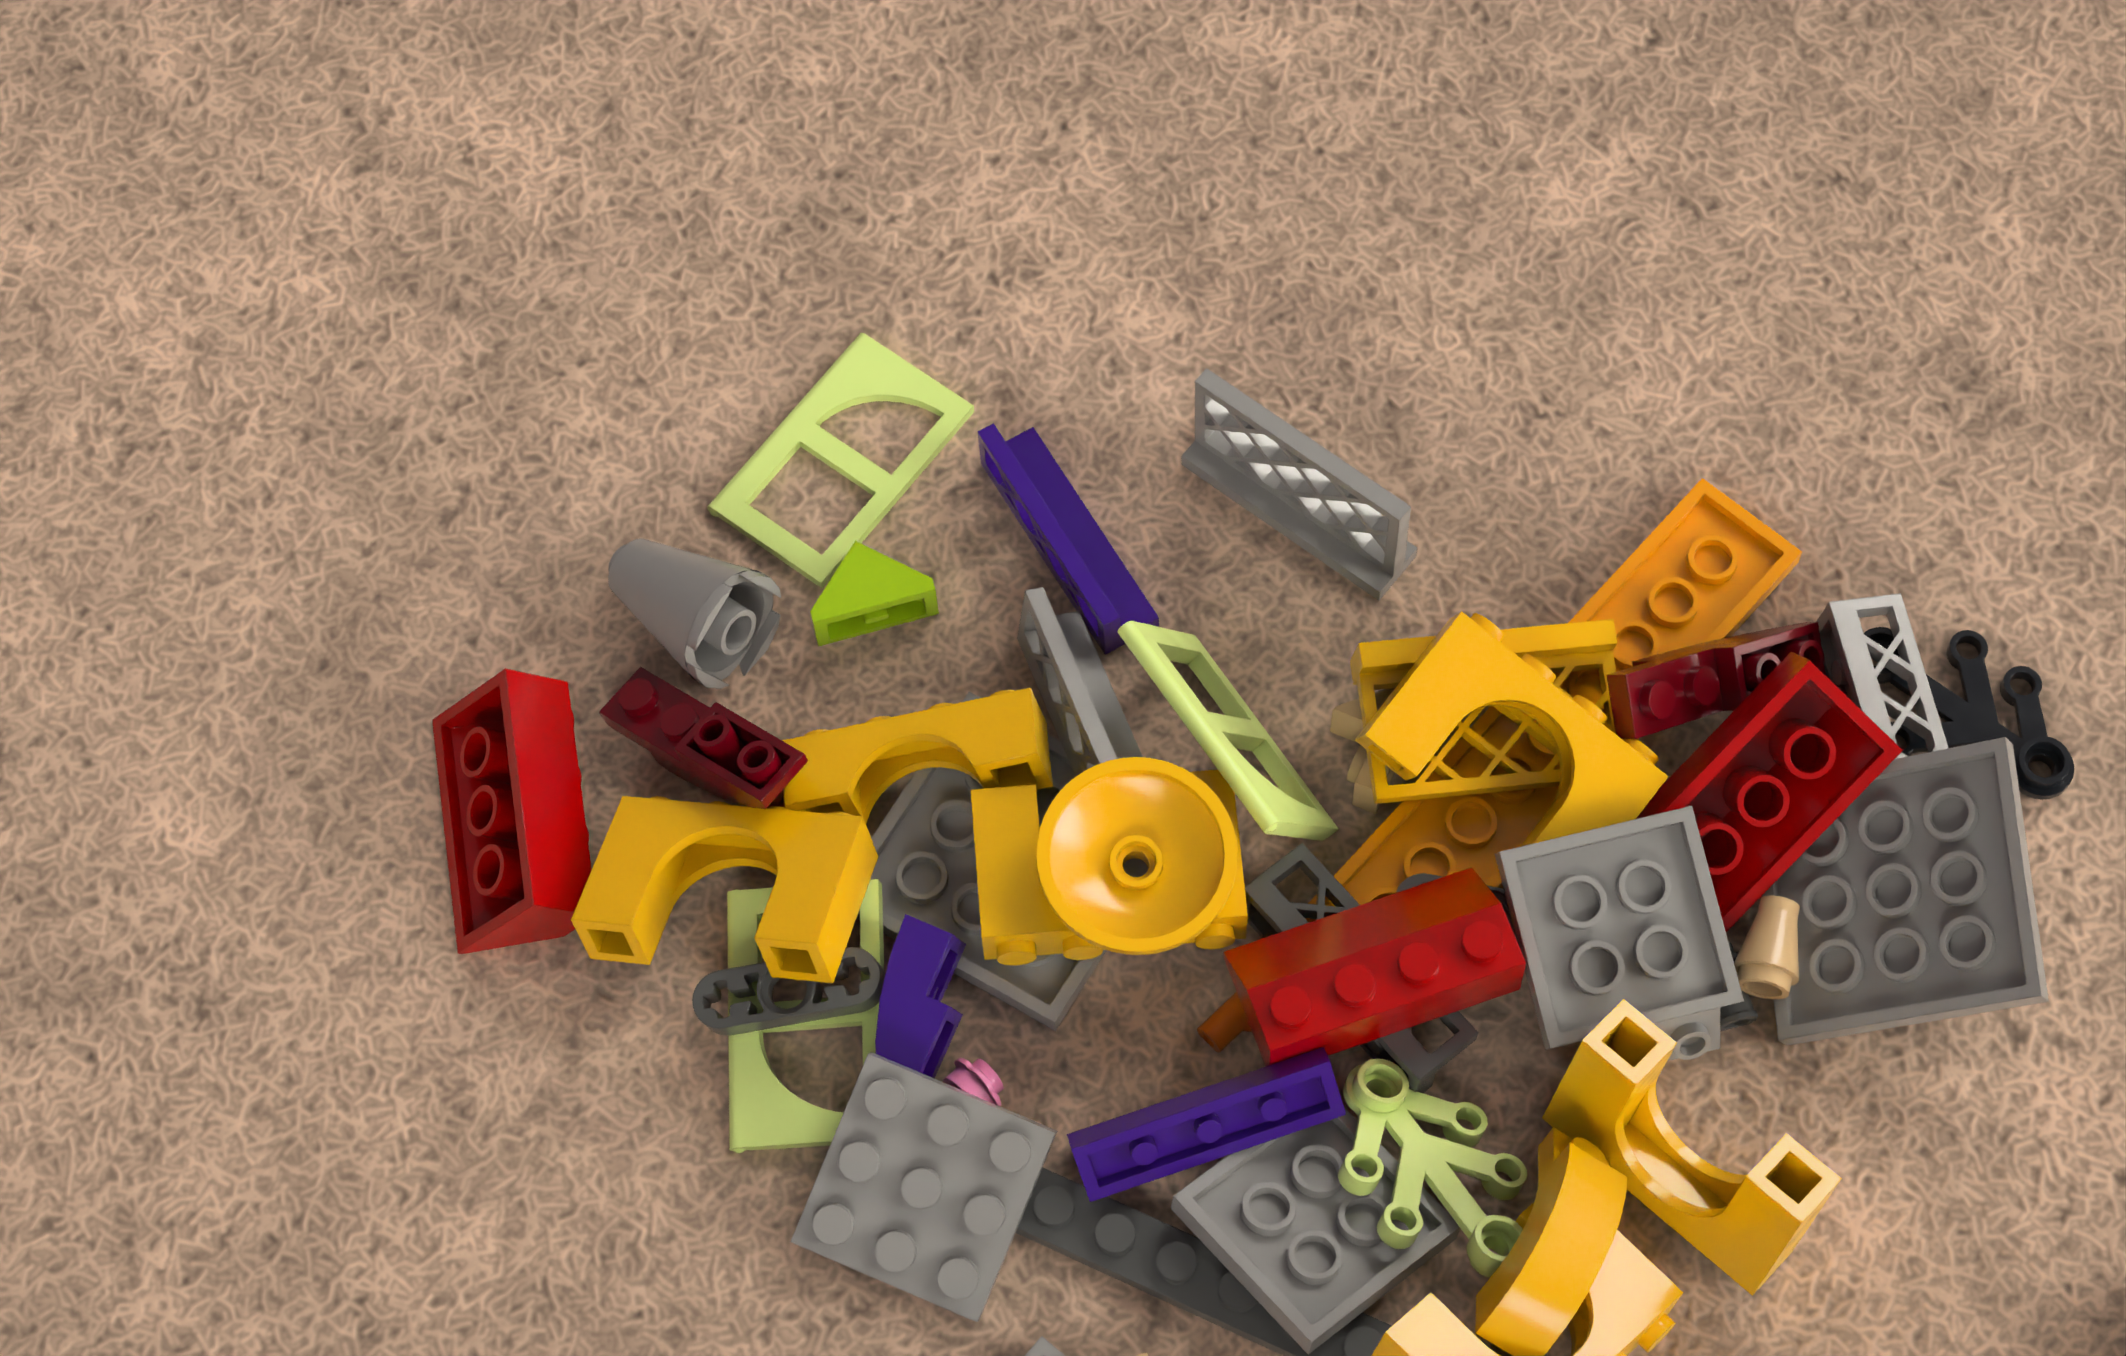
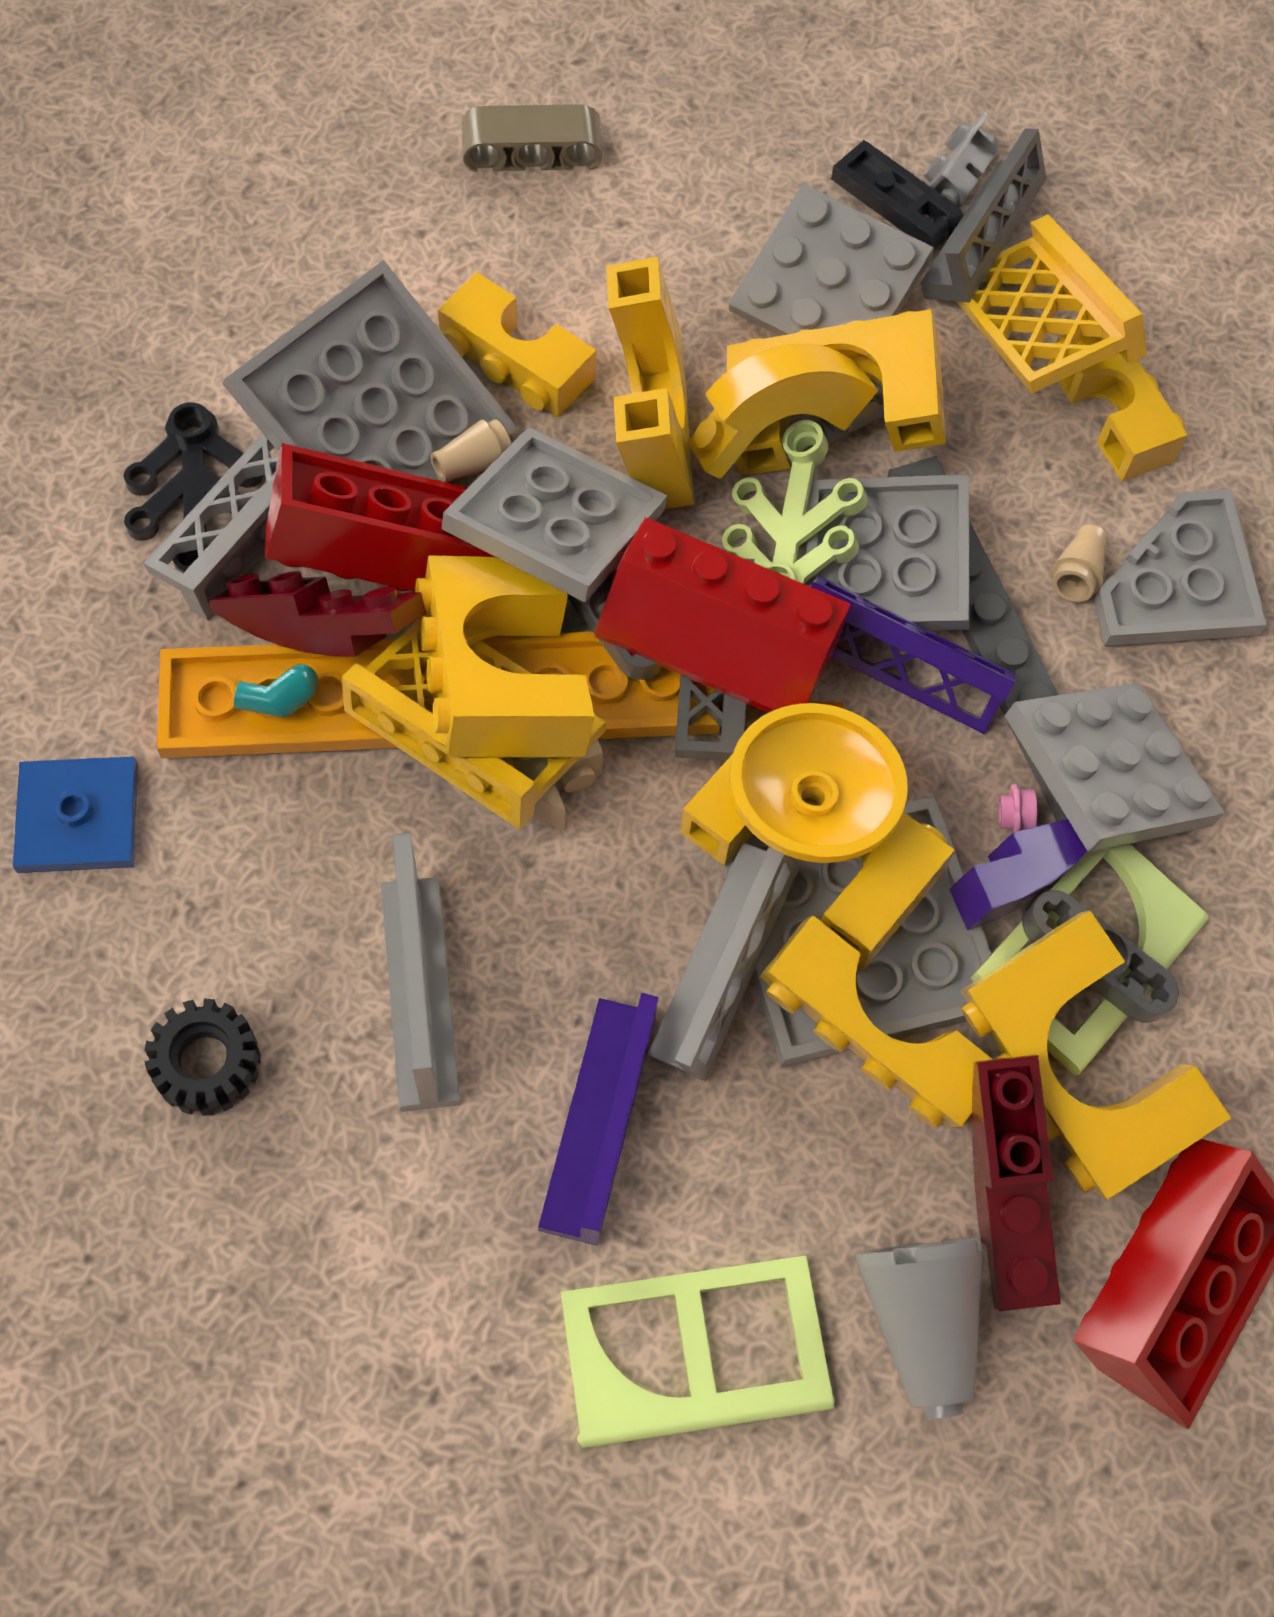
camera: 145 degrees left, 0 degrees up
(871, 595) = (784, 1201): lime slope -> none
(1279, 811) = (683, 773): yellowish green window -> none
(1394, 287) = (188, 1026): none -> black tyre
(1655, 593) = (281, 696): none -> teal arm
(1703, 392) = (75, 814): none -> blue plate
(1932, 1103) = (544, 370): none -> yellow arch

